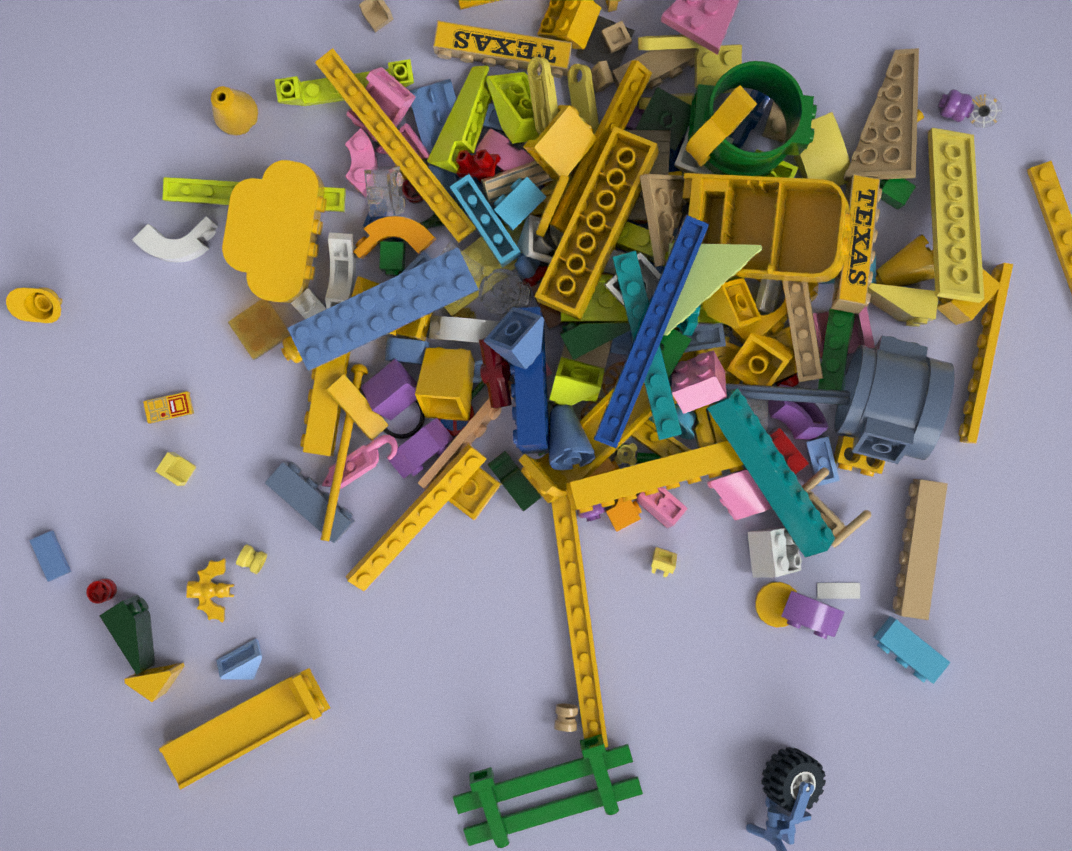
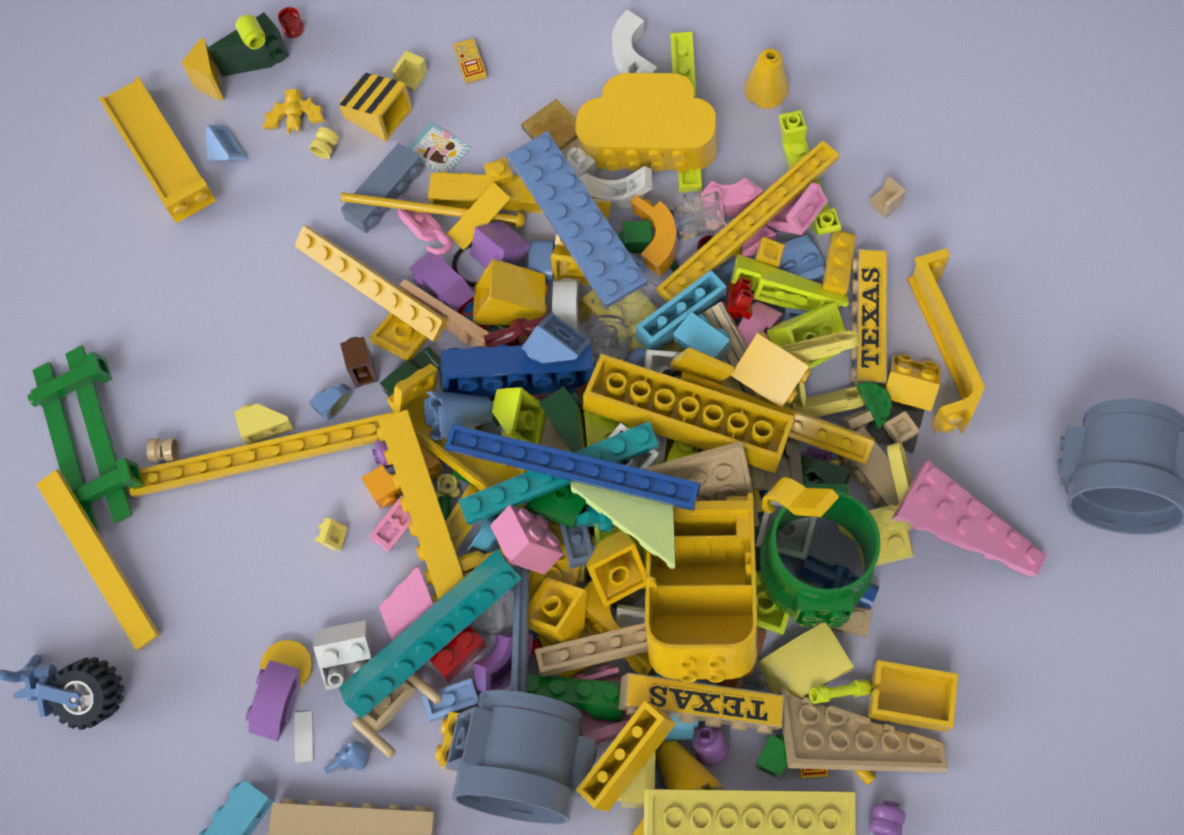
camera: 85 degrees right, 20 degrees down
(127, 628) = (250, 31): none -> neon yellow brick
(213, 505) = (377, 105): none -> yellow slope
(267, 446) = (438, 148): none -> sticker
(312, 384) = (498, 172): none -> yellow plate
(427, 131) = (769, 252): none -> yellow tile
(442, 68) = (839, 262): none -> yellow plate
(499, 530) = (359, 361): none -> reddish brown brick
(531, 559) = (331, 400): none -> medium blue rock
(548, 626) = (260, 423): none -> light yellow slope
(589, 54) = (876, 401): none -> green tile
(668, 775) = (98, 560): none -> yellow tile
(852, 141) = (855, 688): none -> neon yellow bar
(858, 67) = (913, 696): none -> yellow piece
(861, 549) = (351, 755): none -> medium blue piece
(886, 242) = (710, 746): none -> medium lavender piece
(908, 308) = (625, 756): none -> yellow brick

